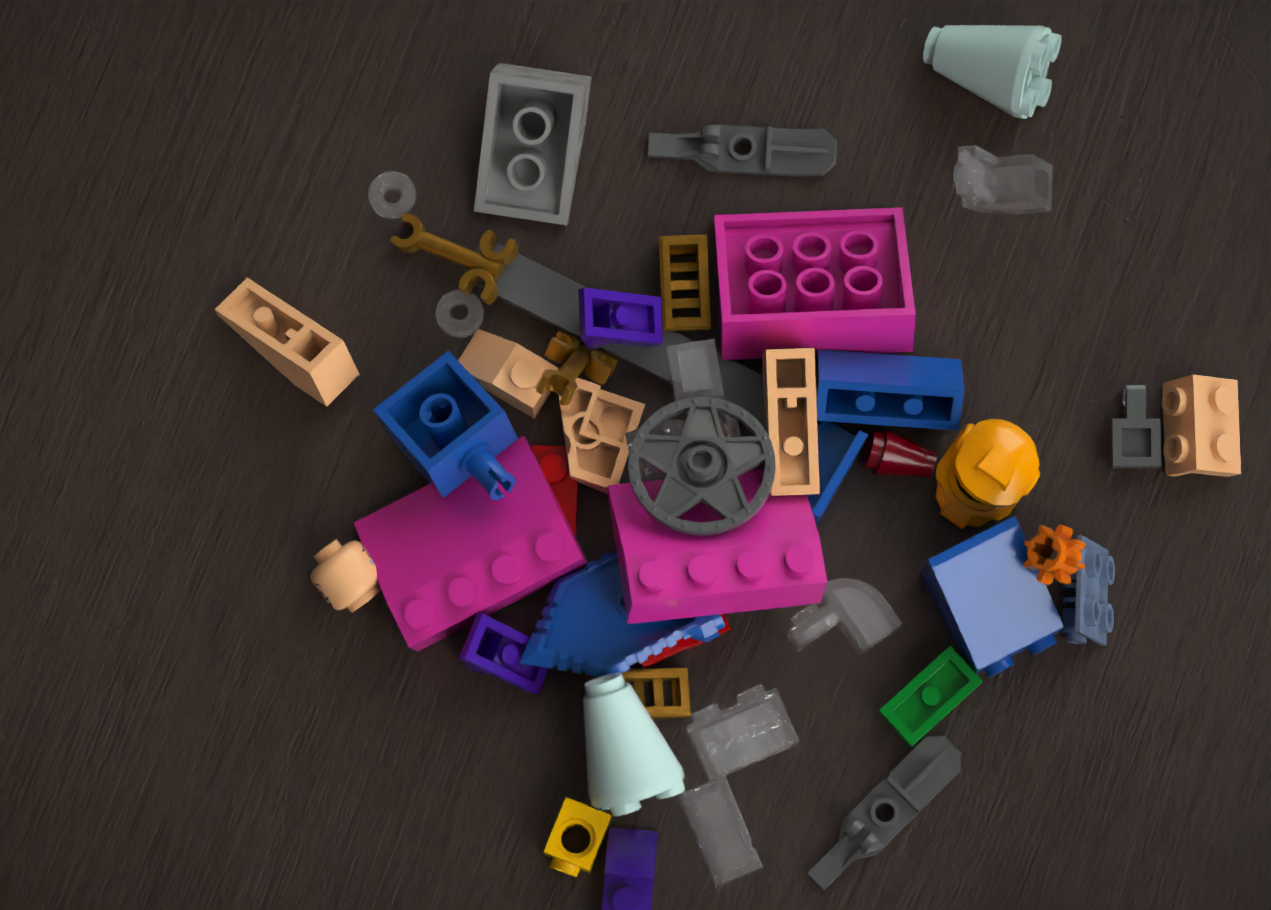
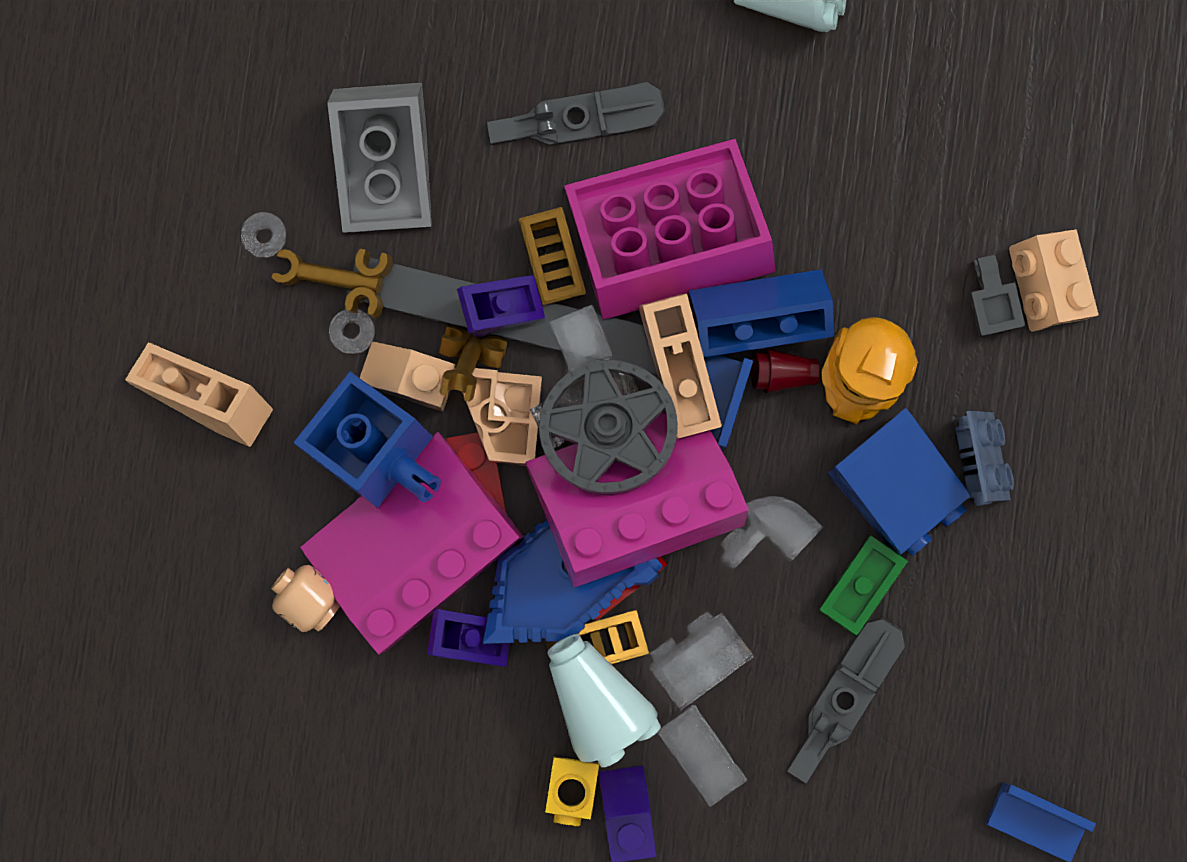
camera: 15 degrees left, 5 degrees up
(1003, 183) = (823, 95): clear brick -> none
(1068, 556) = (952, 423): orange gear -> none

